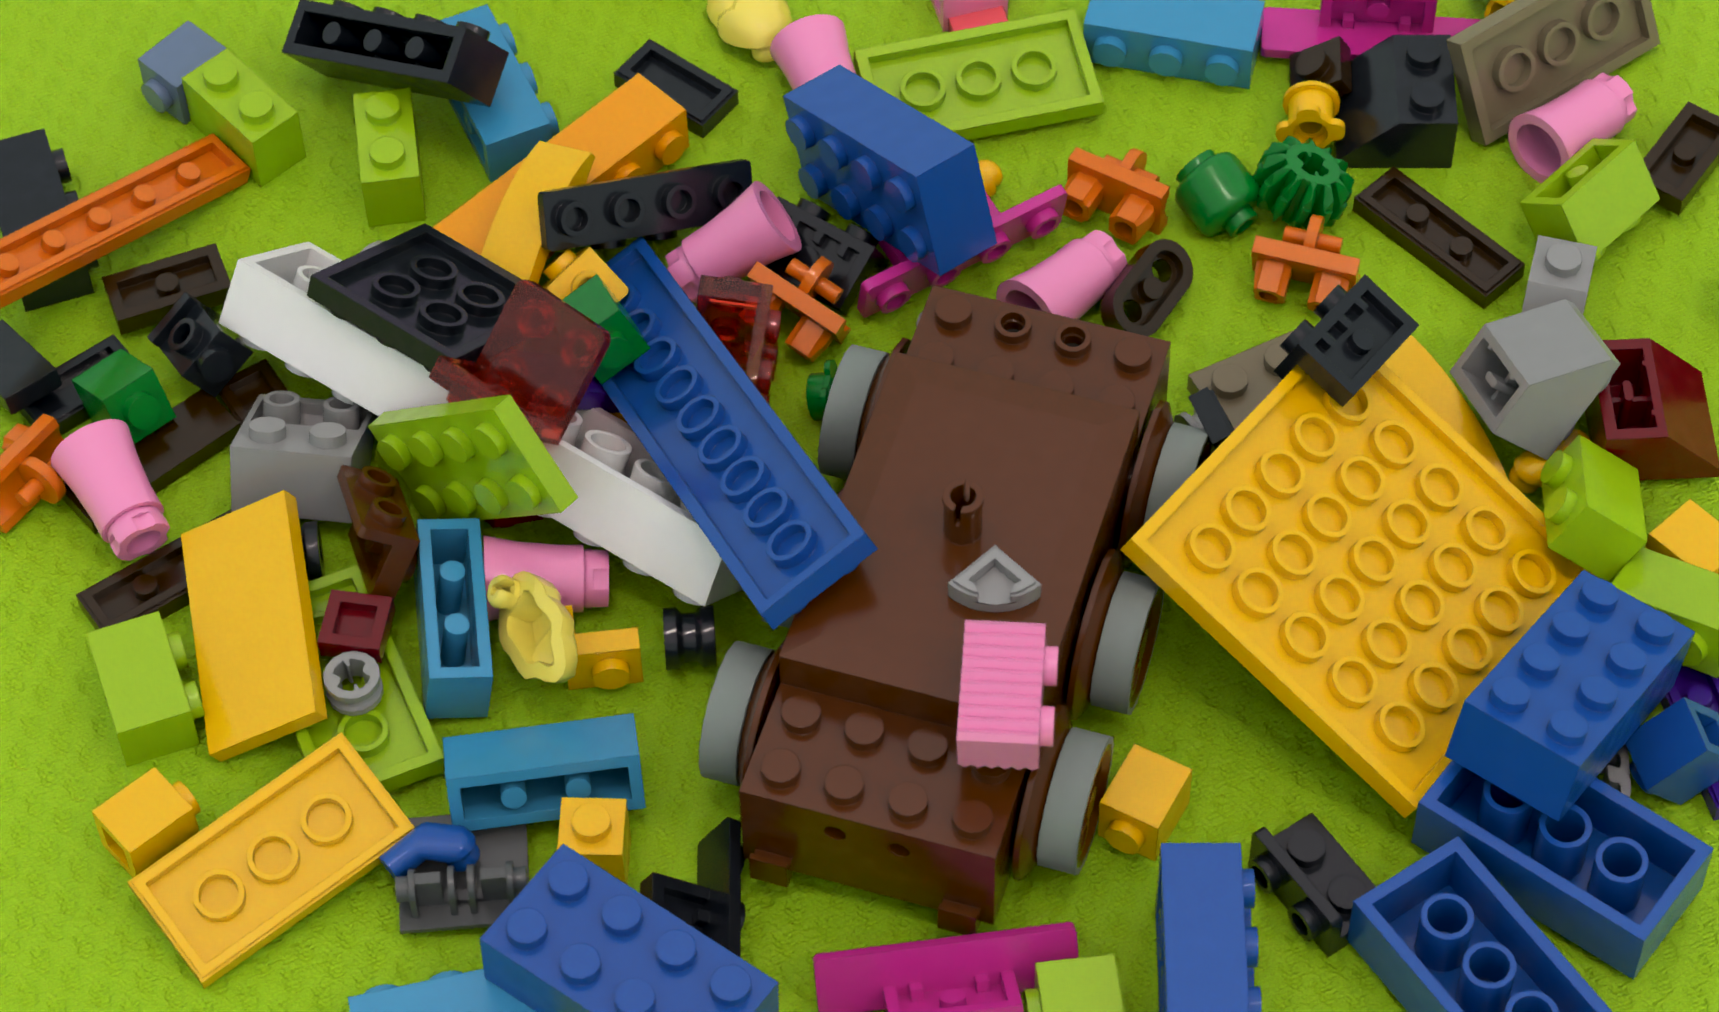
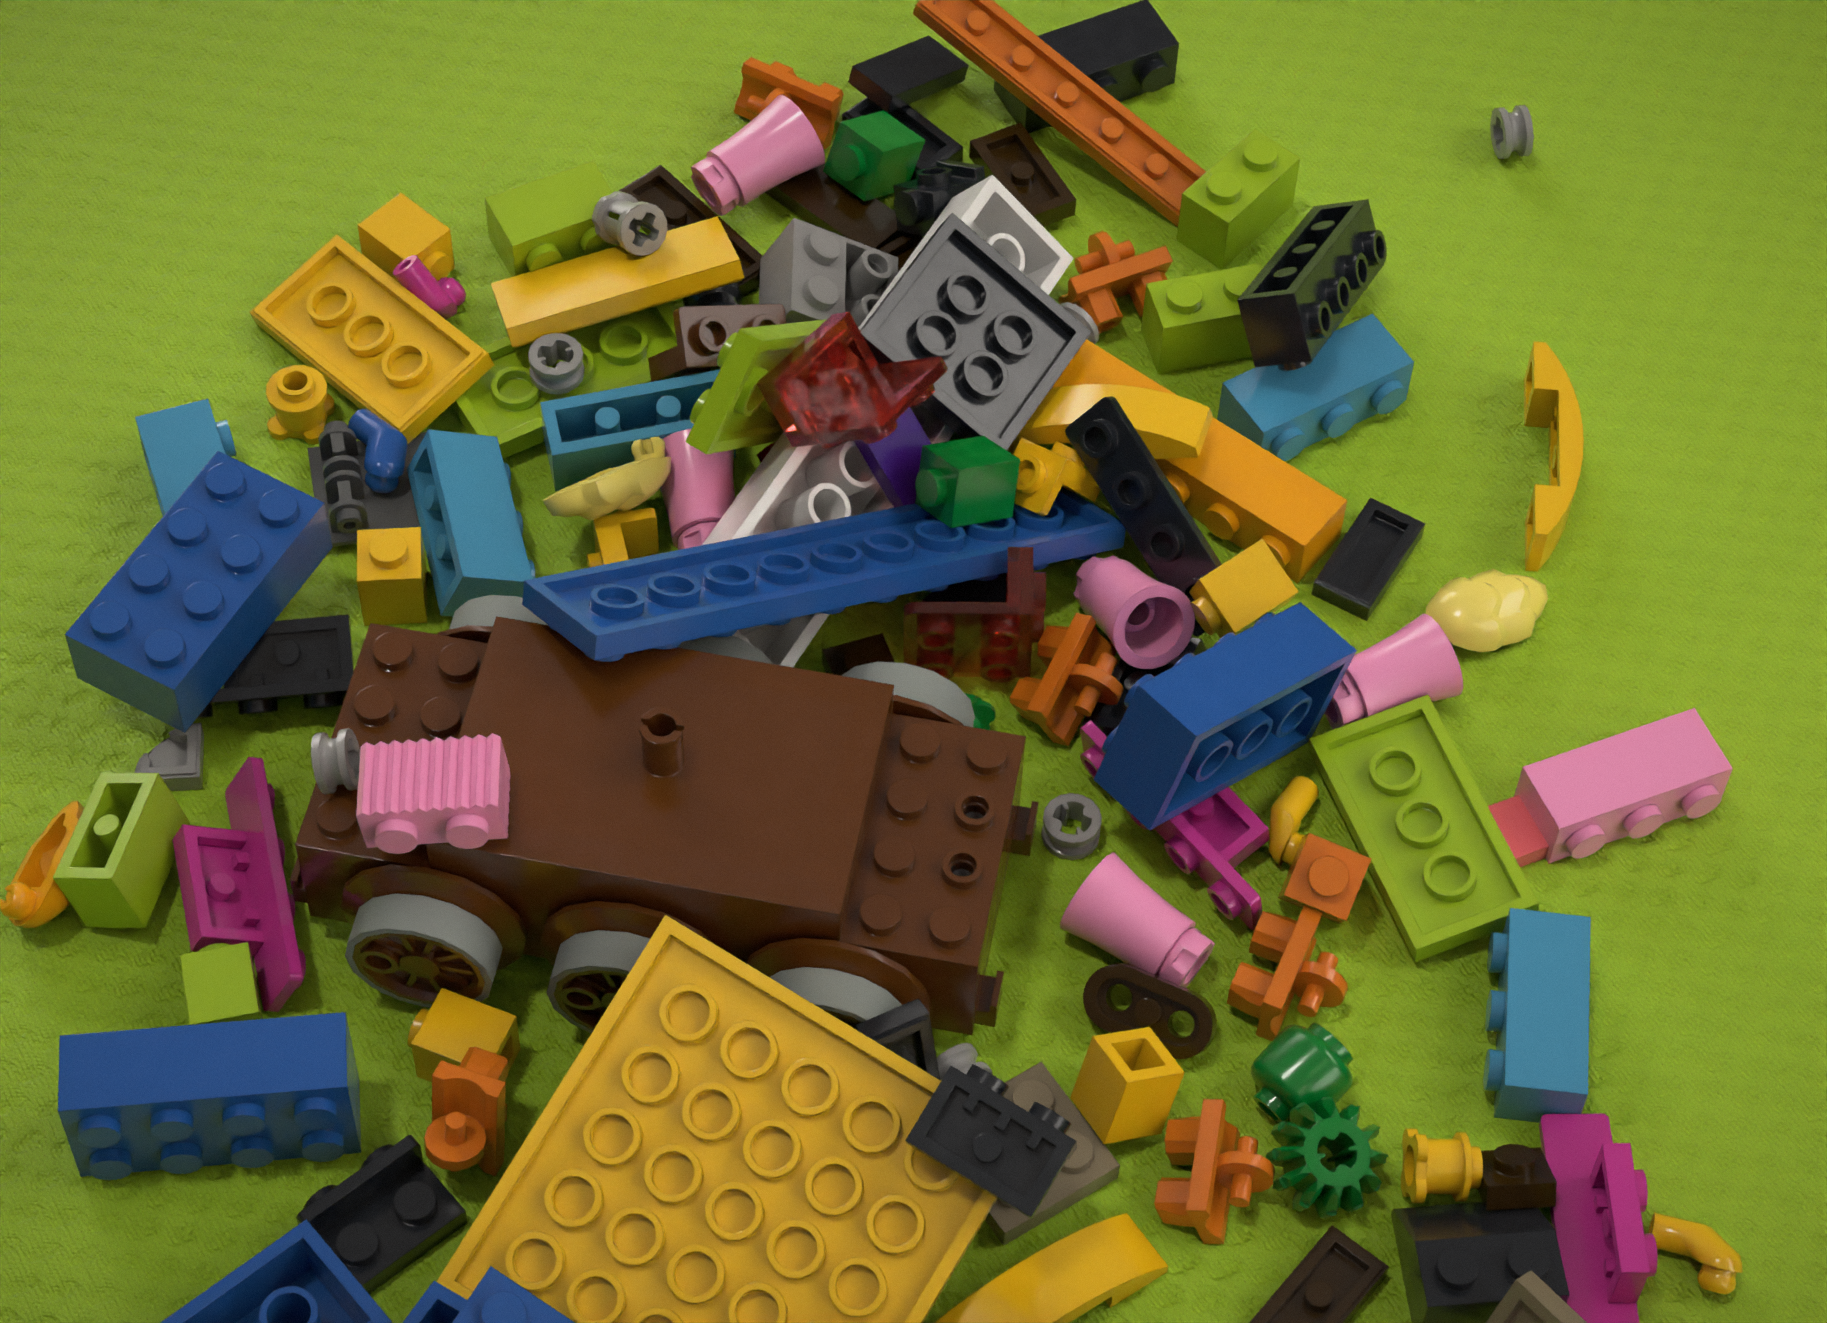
camera: 80 degrees right, 0 degrees up
(169, 62) = (1305, 137): sand blue brick -> none
(181, 618) = (626, 229): none -> light grey bush
(216, 799) = (439, 295): none -> dark pink arm
(321, 217) = (1111, 273): none -> orange hips
(342, 935) = (299, 402): none -> yellow brick
(356, 624) = (615, 353): dark red plate -> none
(755, 141) = (1241, 591): none -> yellow brick
(926, 800) = (335, 760): none -> light grey bush
(994, 584) = (587, 786): light grey tile -> none
(1036, 146) = (1324, 877): none -> orange brick
(1231, 304) = (1127, 1085): none -> yellow brick
(1233, 785) = (468, 1113): none -> orange hips

